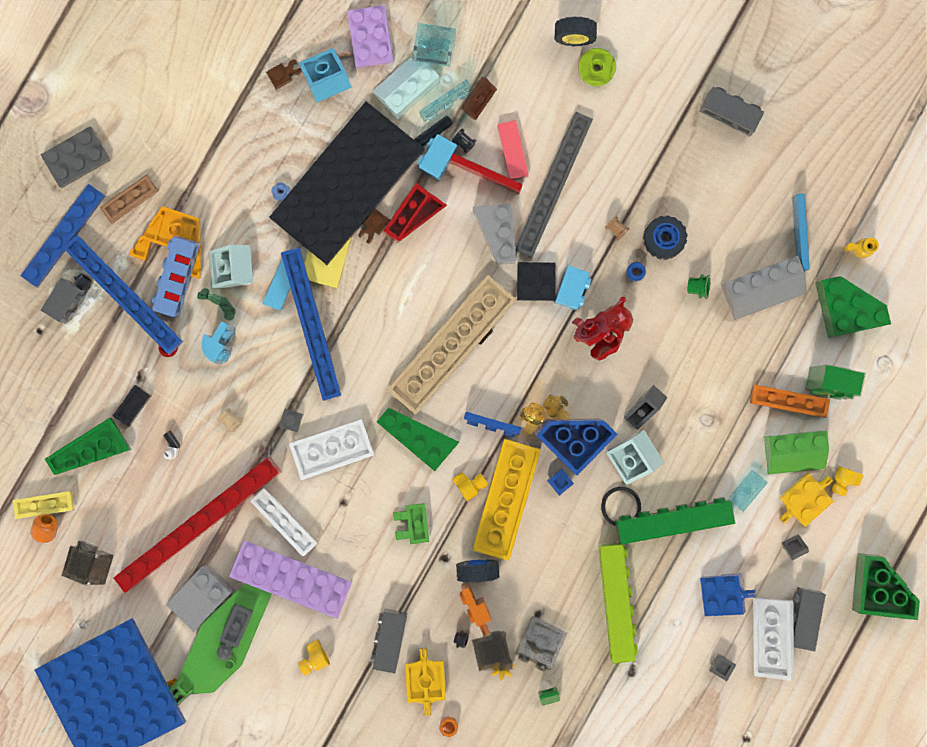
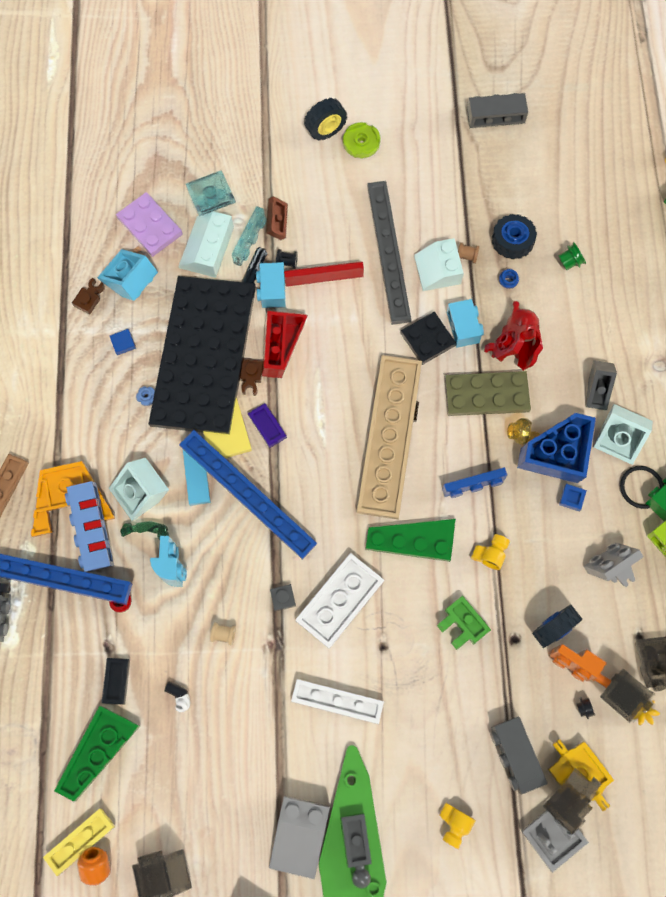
camera: 30 degrees left, 15 degrees down
(197, 524) = (251, 763): red brick -> none
(288, 132) = (122, 342): none -> blue tile
(290, 579) = (380, 756): lavender plate -> none
(361, 275) = (267, 425): none -> dark purple tile
(378, 709) = (553, 840): none -> light grey plate
(403, 695) = (571, 800): none -> clear smoke plate
(448, 726) = (635, 807): orange tile -> none
(498, 231) = (366, 313): light grey wedge -> none
(506, 499) = (535, 545): yellow plate -> none
(512, 150) = (333, 242): coral tile -> none
(533, 417) = (507, 452): clear yellow animal -> none
(552, 357) = (487, 393): none -> olive plate
(553, 552) = (614, 563): none -> light grey plate
(585, 224) = (439, 265): none -> light aqua slope
(765, 287) = (626, 227): light grey slope -> none
(800, 230) = (623, 168): dark azure tile -> none

